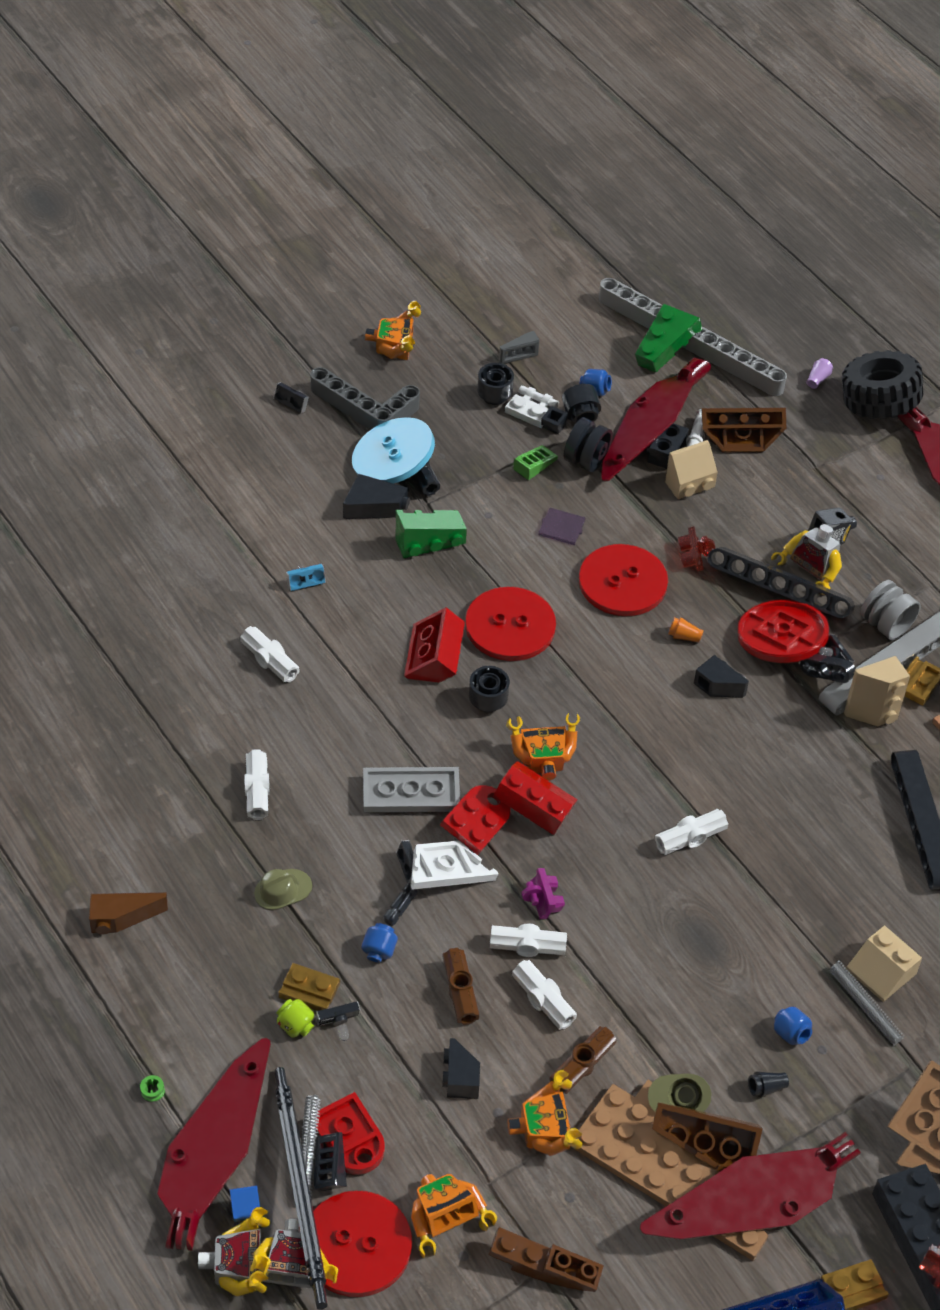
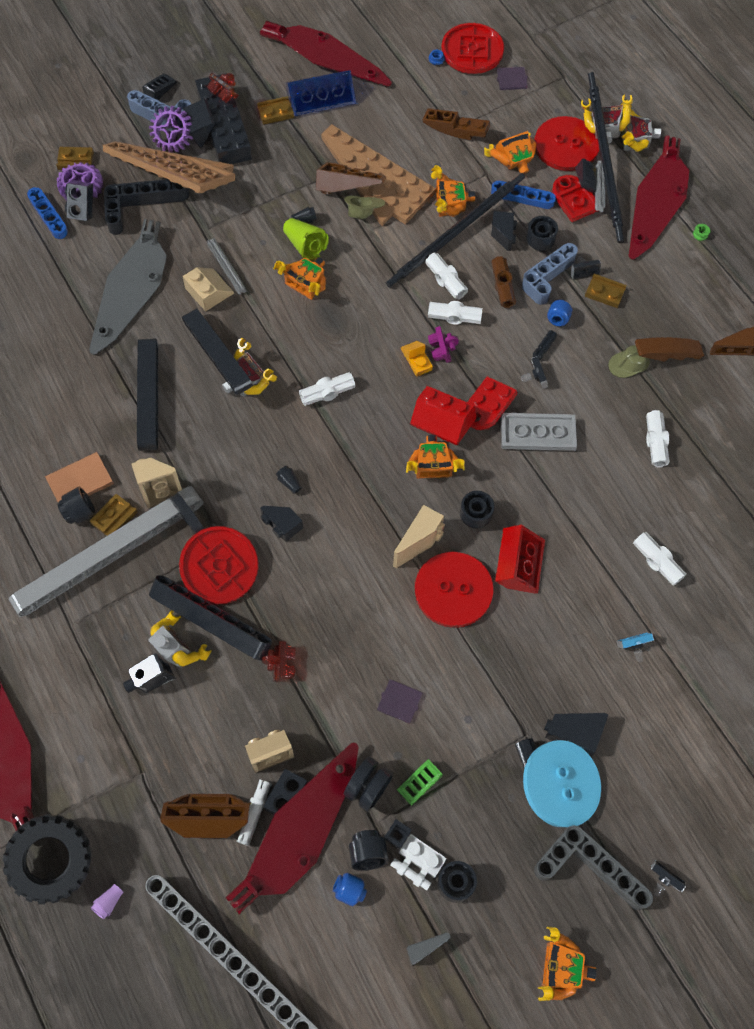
camera: 175 degrees left, 15 degrees up
(231, 887) = (668, 347): none -> reddish brown slope
(244, 1202) = (635, 158): blue panel -> none
(295, 1018) = (614, 265): lime head -> none
(368, 1029) = (536, 279): none -> sand blue beam
(404, 1043) = (542, 233): none -> black piece
(428, 532) = (525, 683): green wedge -> none
(431, 1136) = (524, 191): none -> blue beam
(447, 865) = (513, 363): white wing -> none
(530, 1069) = (457, 228): none -> black axle
(555, 656) = (420, 536): none -> tan slope
(577, 882) = (417, 358): none -> light orange slope
(592, 1050) = (423, 233): reddish brown piece -> none
(623, 580) = (350, 634): red plate -> none
(666, 336) = (264, 944): green wedge -> none
(684, 630) = (305, 573): orange cone -> none
(721, 726) = (288, 479): none -> black cone
(747, 981) = (304, 276): none -> torso
(755, 1194) = (323, 149): dark red wing -> none
(763, 1039) = (306, 238): none -> lime cone
(793, 1026) = (280, 248): blue head -> none
(799, 841) = (258, 377): none -> torso
(835, 649) = (177, 541): piece -> none
(848, 857) = (217, 352): none -> black beam
(890, 609) = (120, 575): light grey wheel -> none

